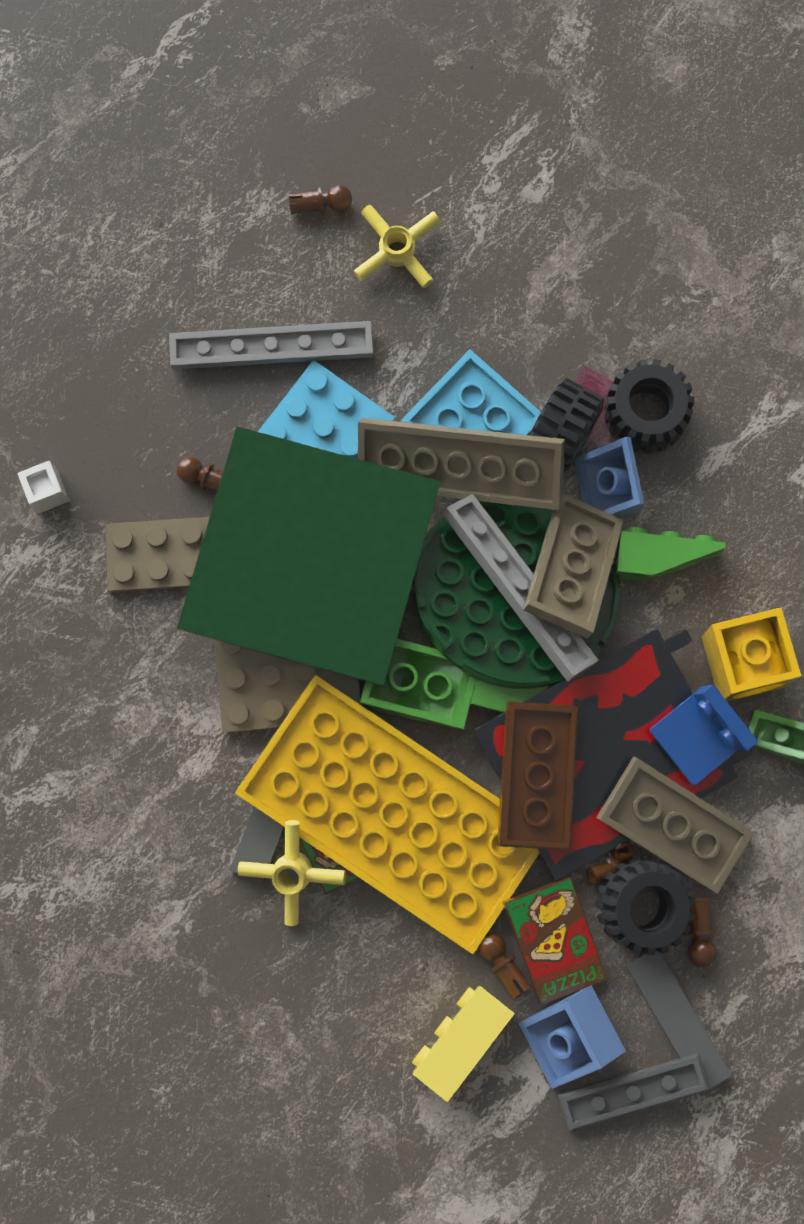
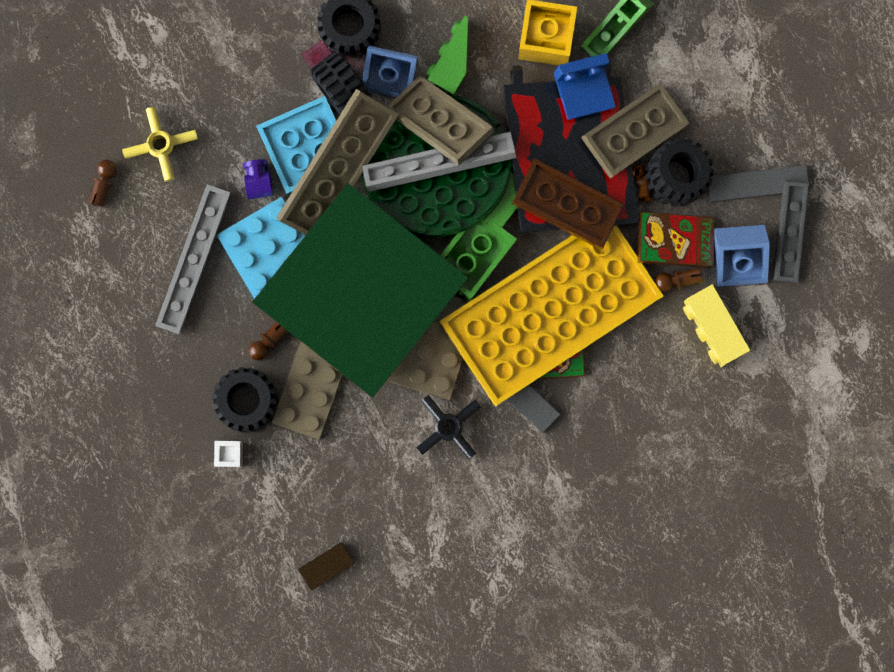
camera: 70 degrees left, 5 degrees up
(107, 454) = (229, 384): none -> black tyre
(200, 752) = (441, 418): none -> black bar
(300, 864) = (554, 387): light yellow bar -> none
(402, 380) = (257, 180): none -> dark purple piece
(701, 950) = (721, 149): reddish brown pin -> none

